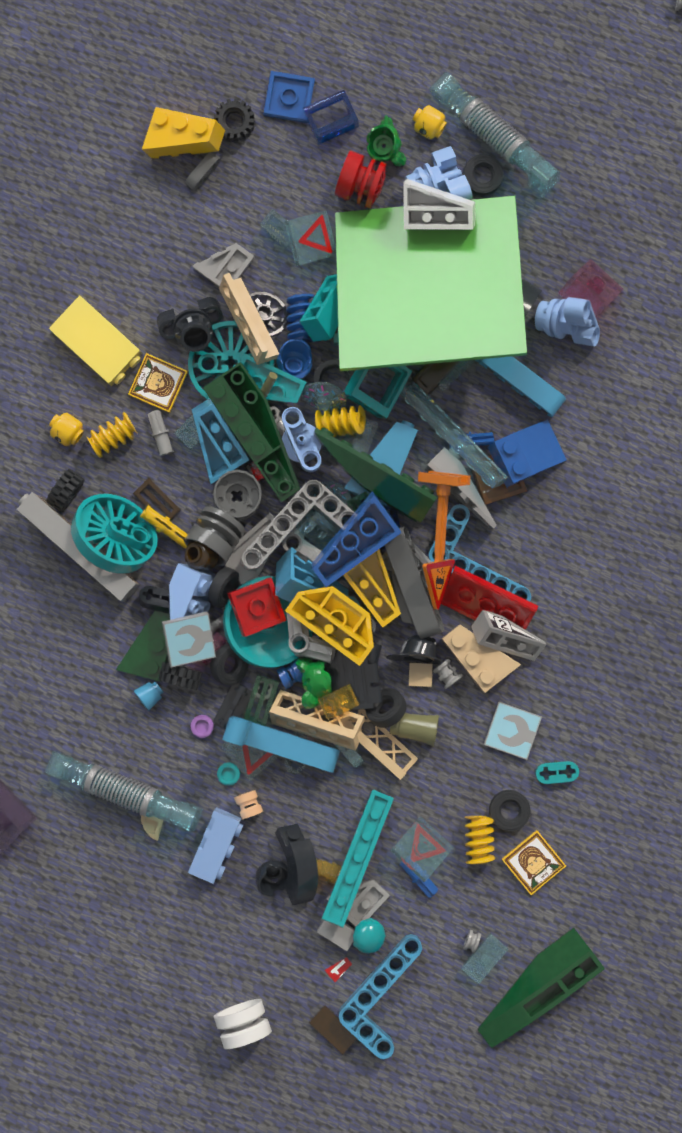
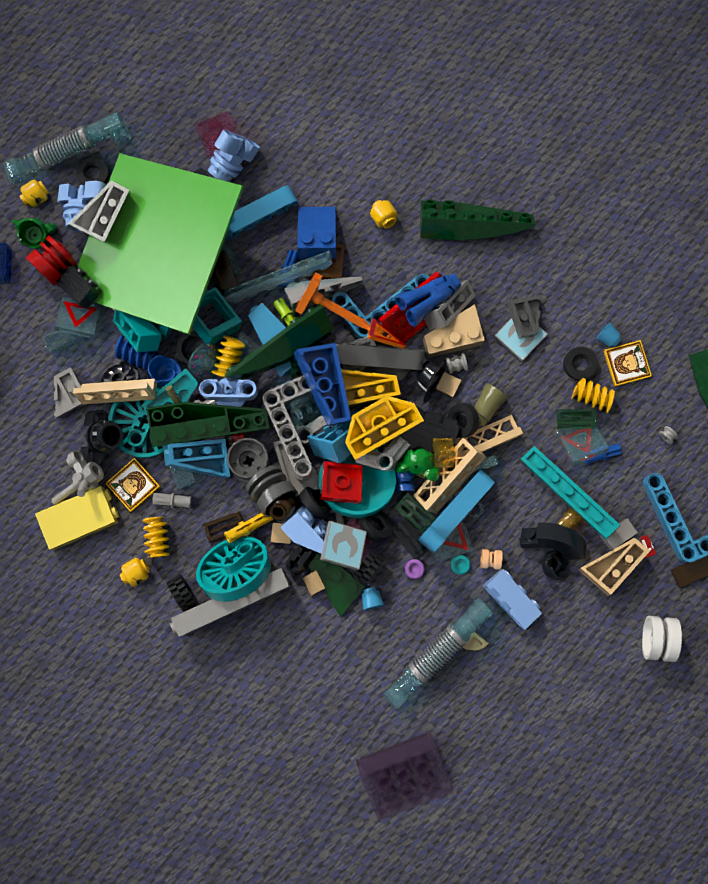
camera: 60 degrees left, 5 degrees down
(138, 625) = (313, 583): none -> tan tile
(139, 330) = (84, 479): none -> light grey piece
(172, 562) = (279, 535): none -> tan tile
(299, 941) = (613, 567): none -> tan wedge
(345, 223) = (79, 286): none -> black brick
(367, 901) = (605, 499): light grey wing -> none
(369, 936) = (633, 510): teal hair -> none
(419, 461) = (286, 314): none -> lime axle
(437, 834) = (576, 421): none -> clear green tile
(484, 958) = (687, 433): clear light blue plate -> none
(513, 618) = (437, 291): none -> blue piece
(535, 726) = (525, 315): none -> dark grey wing
(555, 829) = (609, 335): none -> dark azure hat
(556, 766) = (570, 318): teal beam -> none
(581, 518) = (383, 214): none -> yellow head
(616, 617) = (467, 222): none -> dark green wedge

